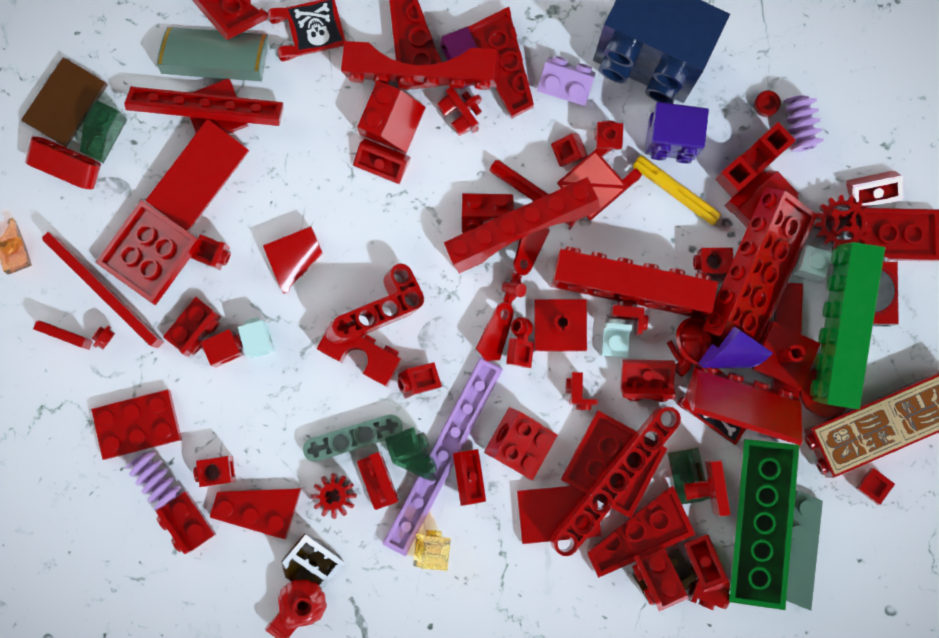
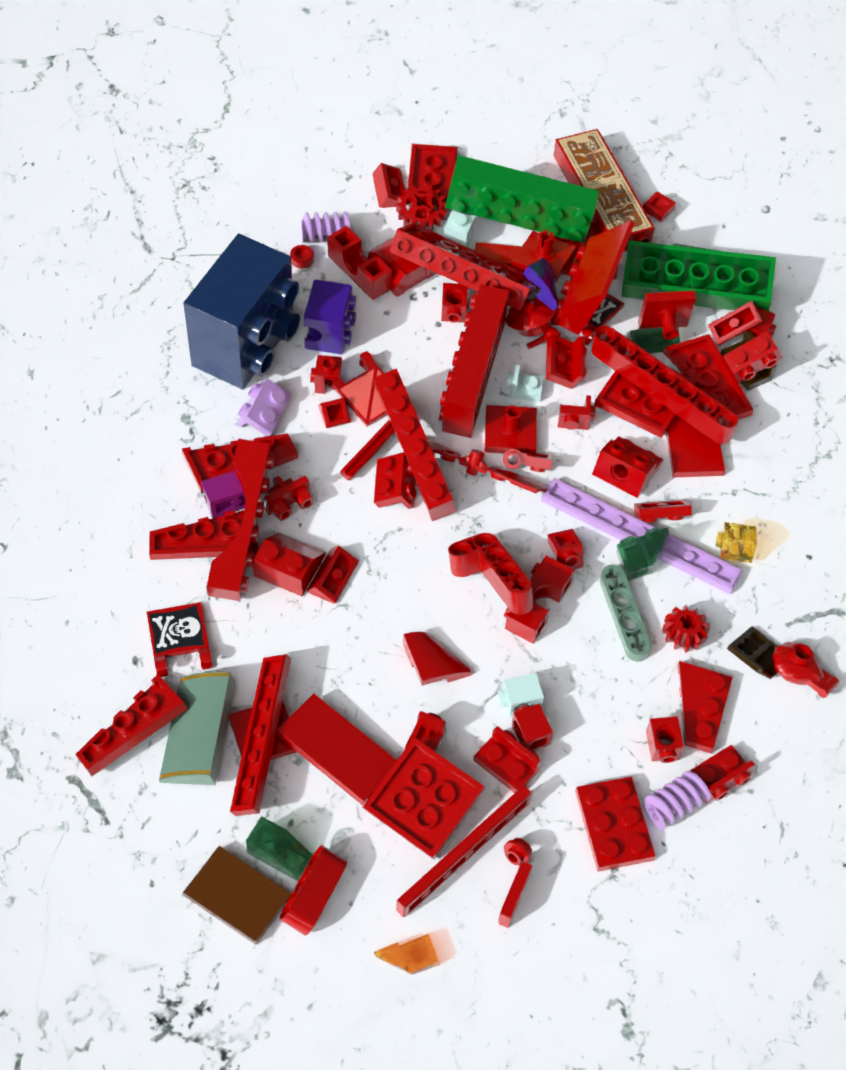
camera: 90 degrees left, 25 degrees down
(378, 481) = (668, 584): red bracket -> none
(626, 311) = (505, 365): red bracket -> none
(677, 190) = (380, 329): yellow axle -> none

